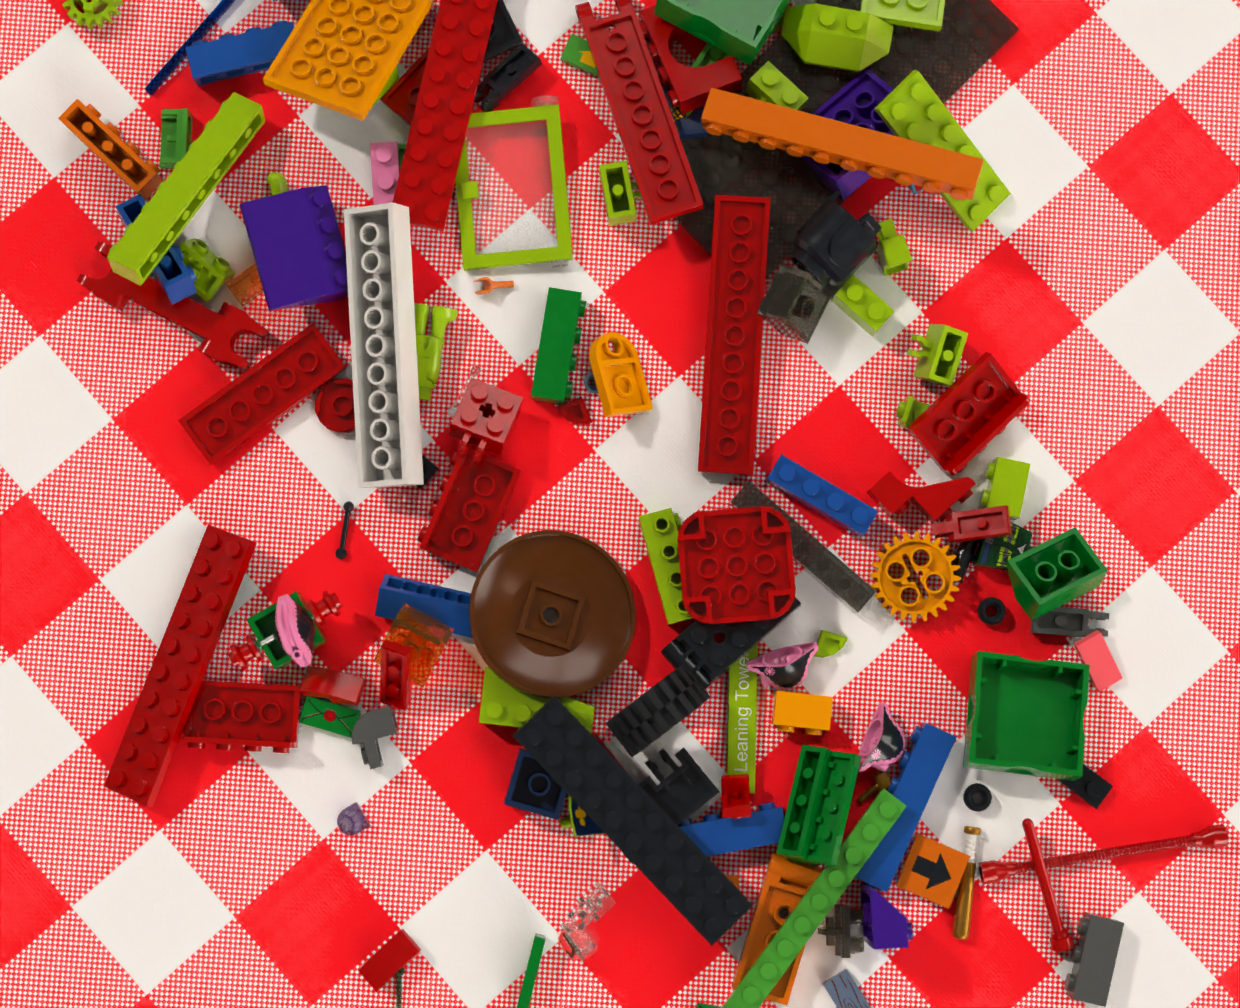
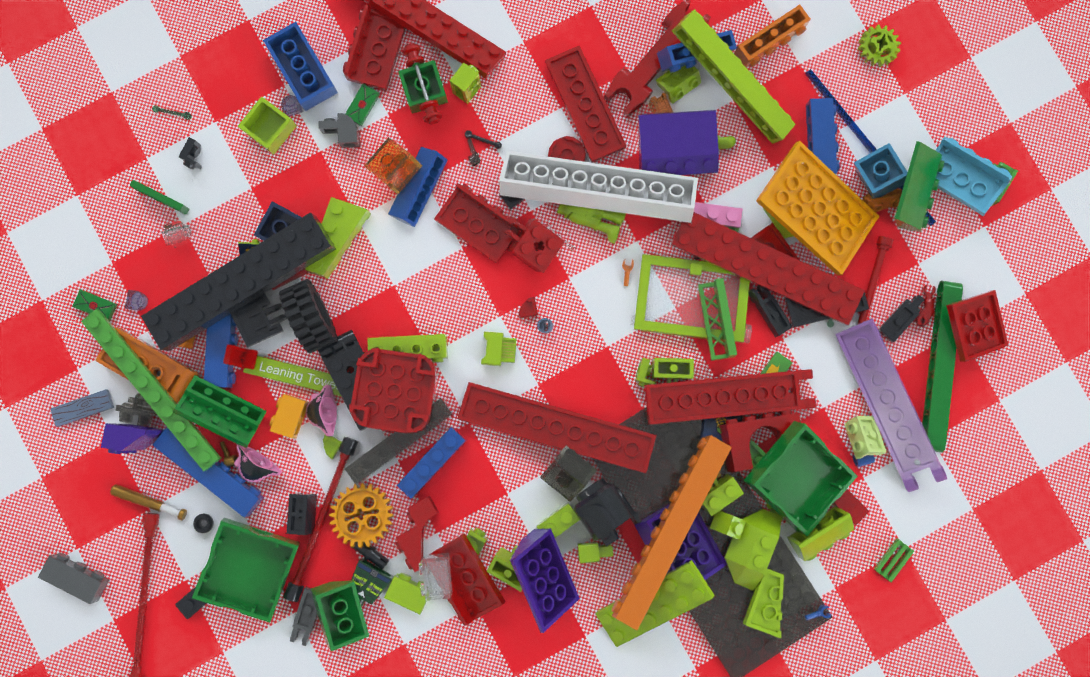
camera: 105 degrees right, 0 degrees up
(175, 136) = (774, 83): bright green hinge -> none
(269, 568) = (465, 82): none -> lime brick
(293, 630) = (418, 86): bright pink hat -> none
(293, 816) = (300, 66): none -> blue brick
(332, 684) = (380, 110): red slope -> none
(374, 535) = (474, 158): none -> clear smoke hand
(389, 960) = (194, 109): red slope -> none
(392, 843) = (267, 125): none -> lime piece
(395, 674) = (375, 148): red tile -> none
(451, 947) = (189, 152): none -> black bracket
(531, 136) = (724, 317): none -> bright green fence
(557, 345) = (575, 305): green brick -> none
(591, 607) = (364, 268): reddish brown dish -> none
(592, 905) = (195, 249): clear plate -> none
(619, 376) = (544, 341): light orange plate -> none
(628, 234) = (644, 370): none -> lime bracket
(642, 439) = (499, 349): none -> lime piece
(686, 975) = (136, 300): none -> clear purple tile
(814, 74) = (728, 524): none -> lime brick
(932, 661) = (301, 513): none -> black hinge
(933, 871) = (160, 481): orange tile -> none
(940, 302) = (544, 577): none -> dark purple slope
(975, 446) = (436, 576): none -> clear piece
(975, 524) = (385, 565): red hinge -> none
(999, 614) = (321, 565): black plate -> none
(1035, 646) = (295, 587): none -> red hose
(1060, 939) = (93, 557): red piece -> none
(1095, 652) = (275, 630): coral tile -> none

